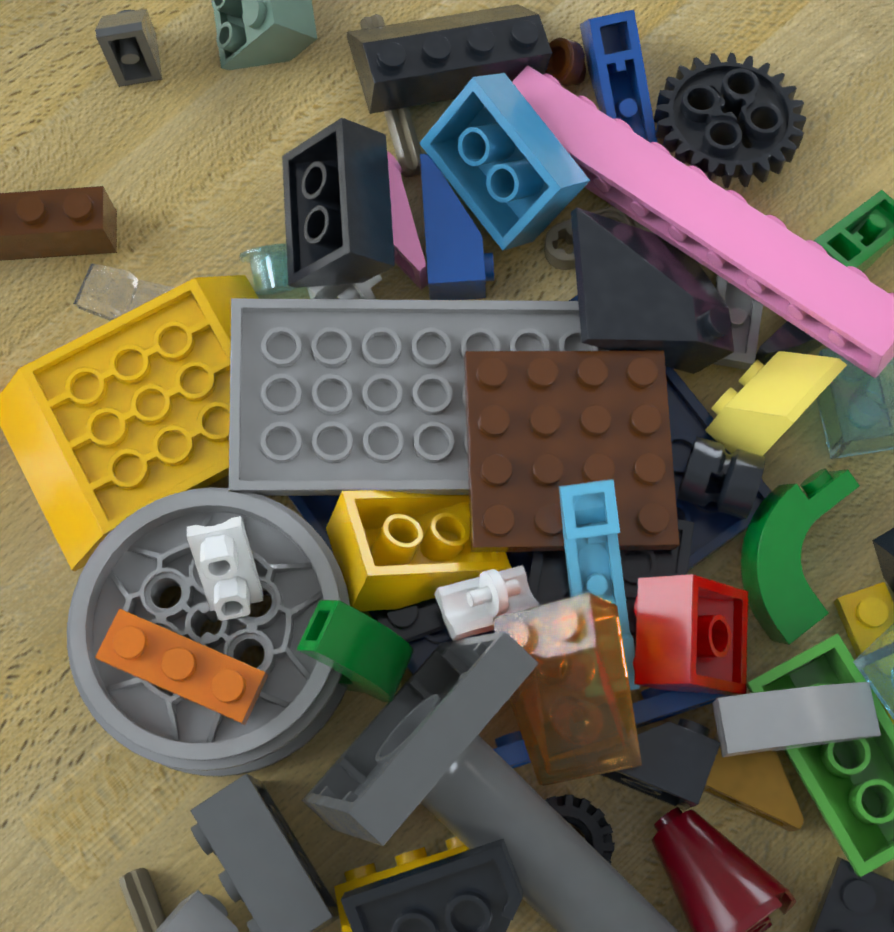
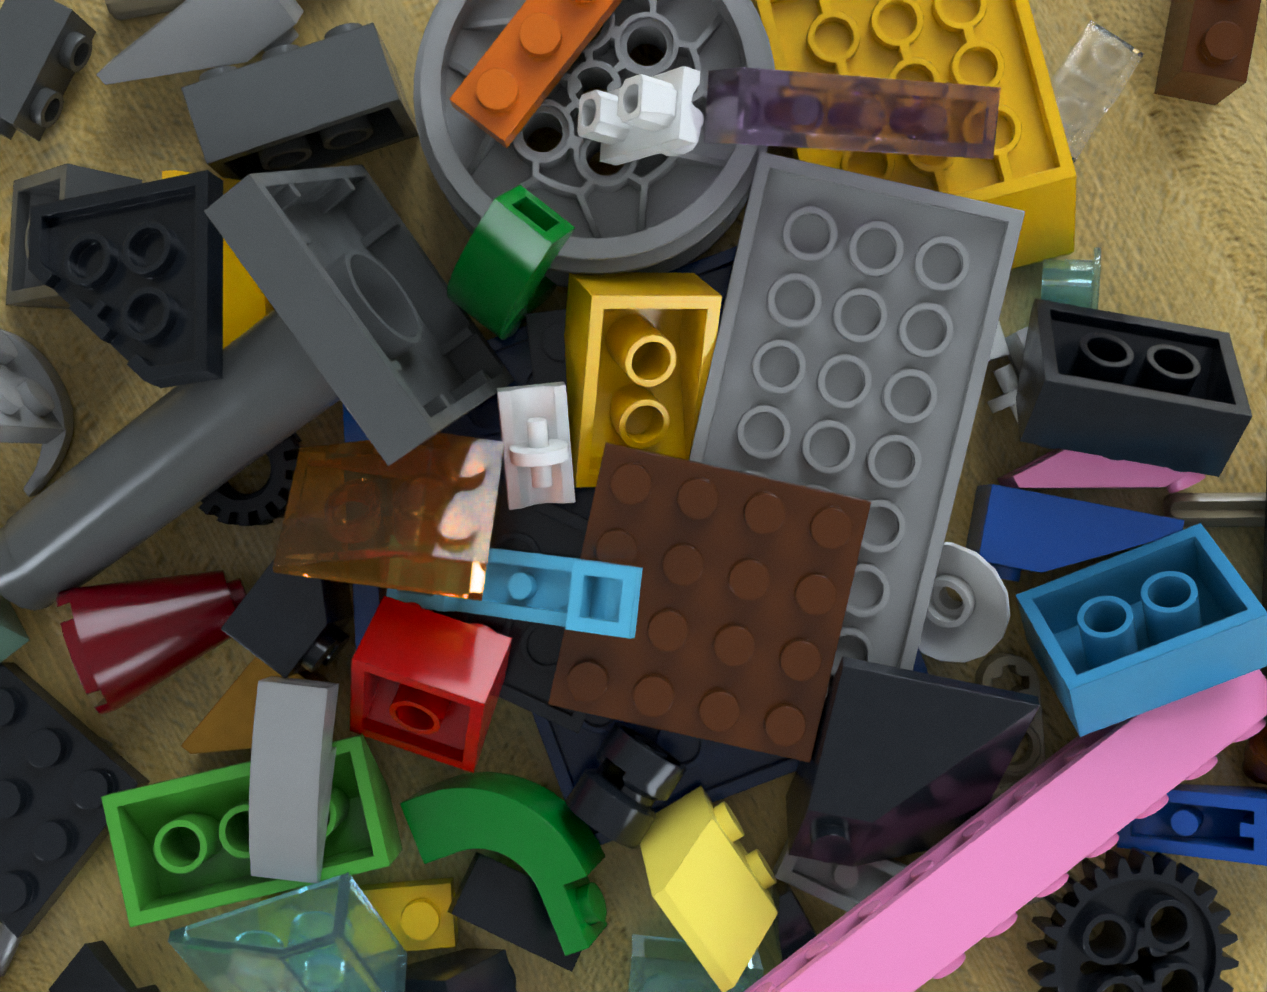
camera: 105 degrees right, 15 degrees up
(192, 427) = (850, 114): none -> brick
(525, 270) = (970, 627): none -> white dish
(841, 543) = (510, 908): none -> black slope

